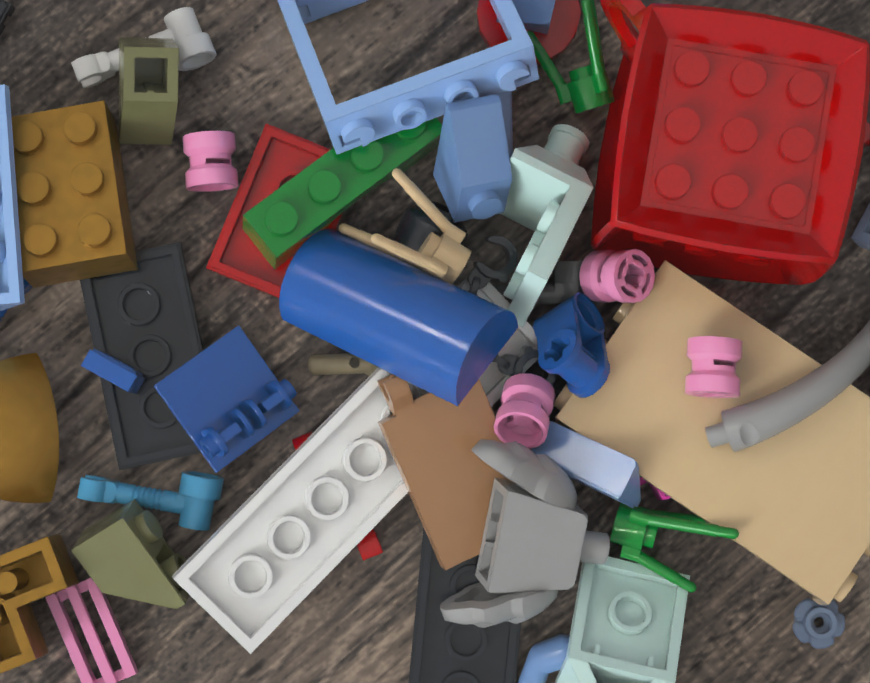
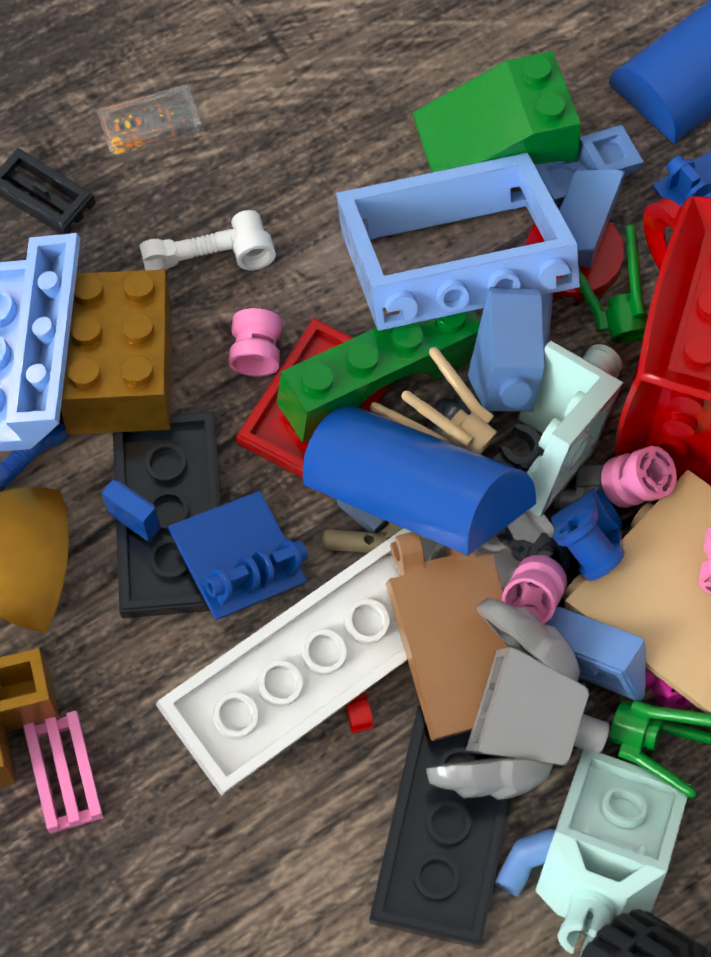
camera: 15 degrees right, 20 degrees down
(131, 557) = (116, 691): olive slope -> none
(147, 90) = (206, 271): olive slope -> none
(192, 502) = (187, 651): dark azure brick -> none

